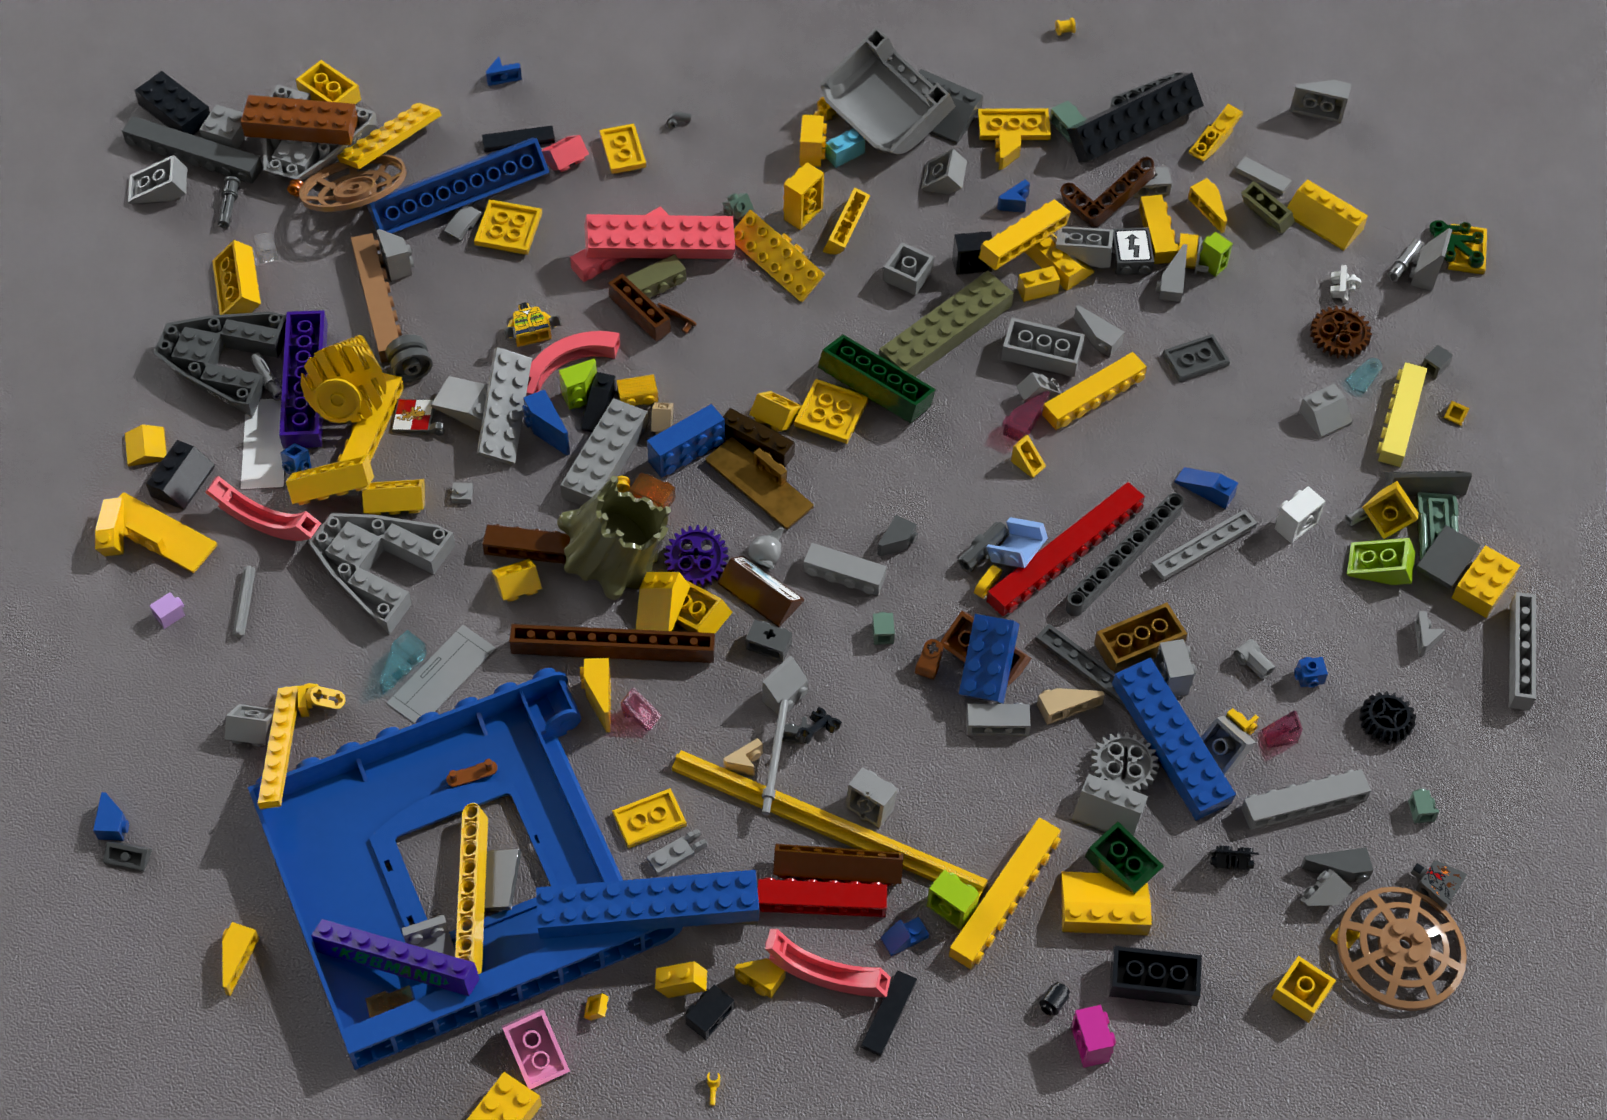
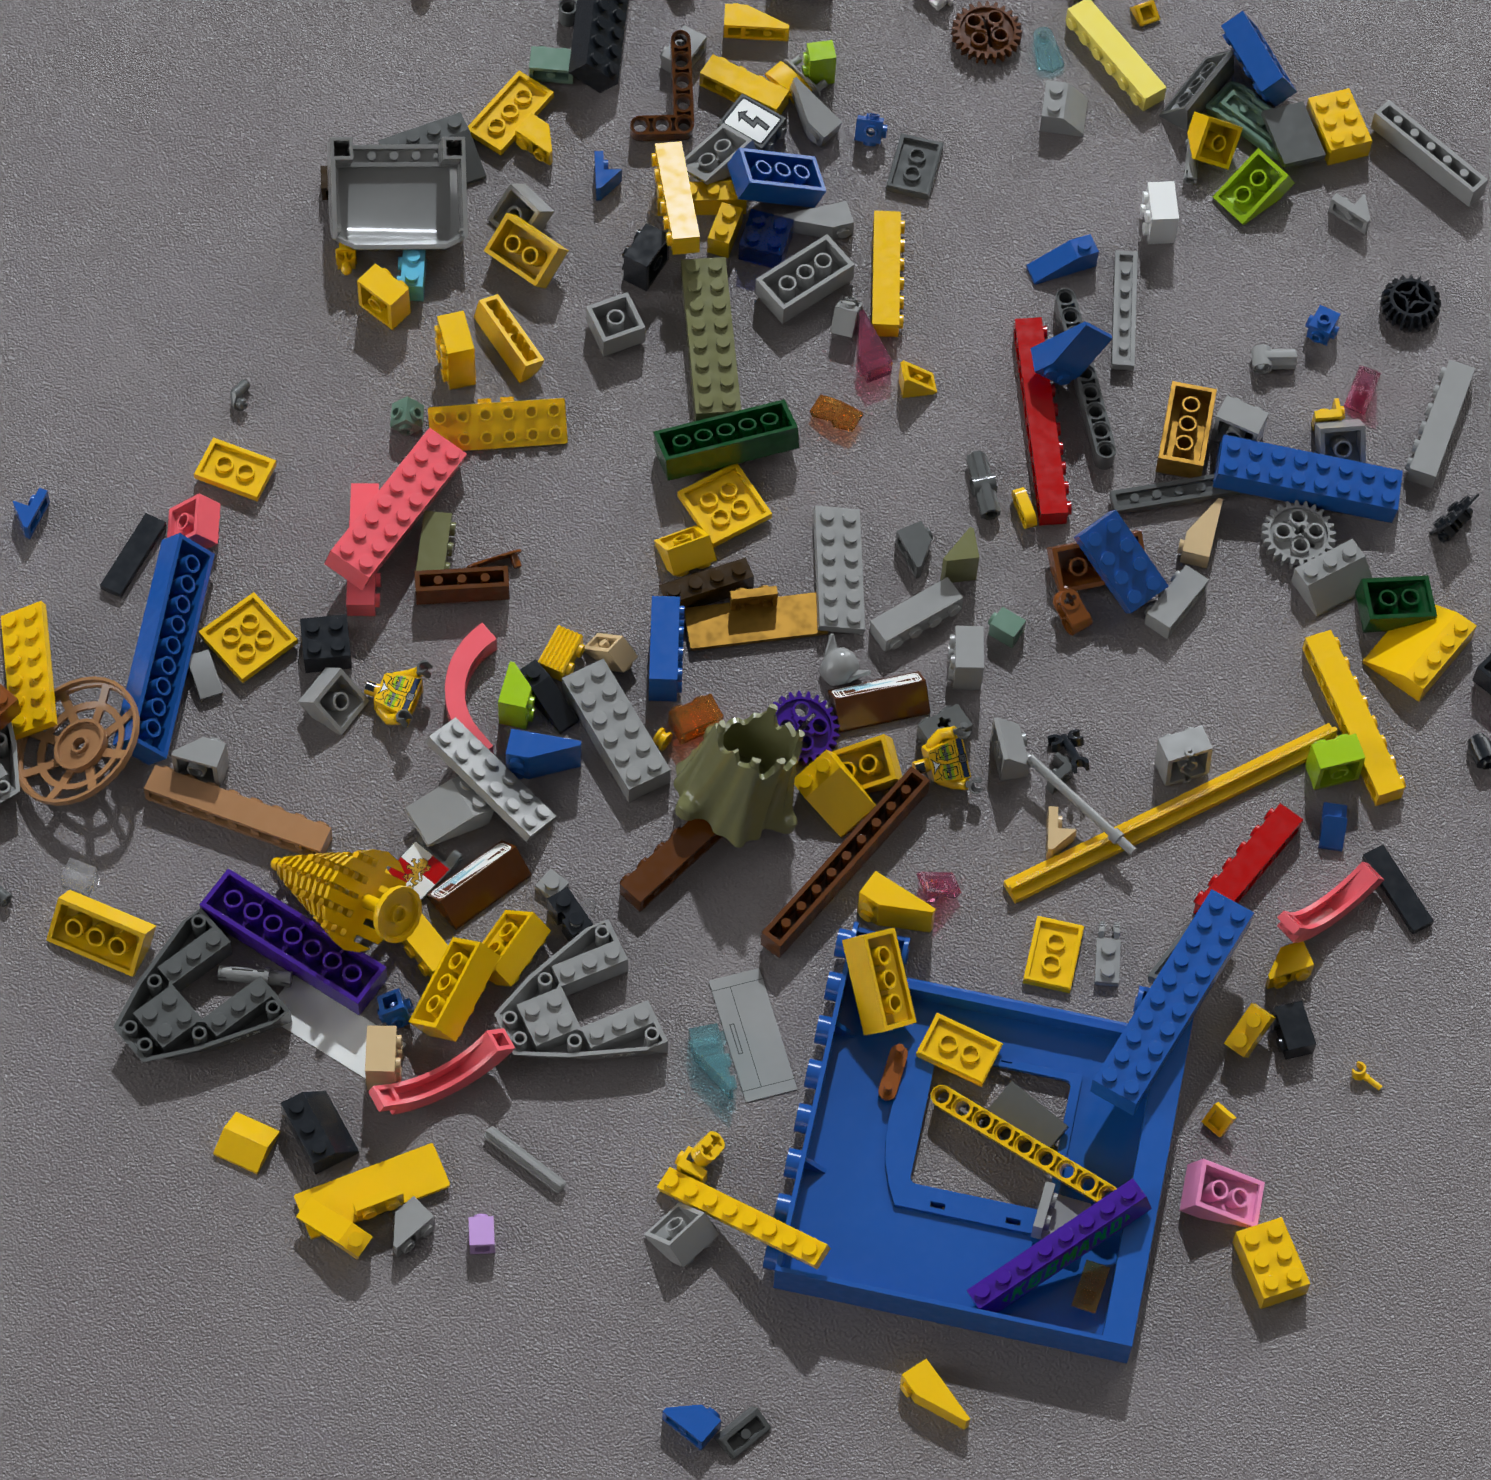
camera: 55 degrees left, 5 degrees up
(145, 566) = (411, 1223): none -> light grey slope
(252, 473) = (383, 1056): none -> tan brick
(294, 187) = (19, 802): orange bush -> none
(409, 357) = (353, 827): dark grey wheel -> none
(429, 453) = (480, 884): none -> reddish brown slope
(446, 511) = (568, 912): none -> black piece
(499, 295) = (334, 700): none -> light grey slope
(517, 580) = (699, 899): yellow slope -> none
(520, 802) = (959, 1049): none -> yellow tile
(525, 714) = (879, 981): none -> yellow slope
(536, 266) = (325, 643): none -> black brick
(740, 654) = (947, 760): none -> torso
(833, 616) = (966, 657): none -> light grey brick
(838, 864) = (1227, 829): reddish brown brick -> none
(839, 504) = (838, 570): none -> light grey plate
(908, 565) = (962, 560): none -> olive slope
(915, 189) = (526, 250): none -> yellow brick
(960, 429) = (839, 413): none -> clear orange slope
(1021, 545) = (1009, 453): light blue panel -> none
(1054, 307) = (765, 238): none -> clear blue brick
(1099, 281) = (776, 177): none -> blue brick
(1123, 523) = (1069, 352): none -> blue slope
(1195, 313) = (868, 137): none -> blue brick
(1484, 496) = (1258, 59): none -> blue brick

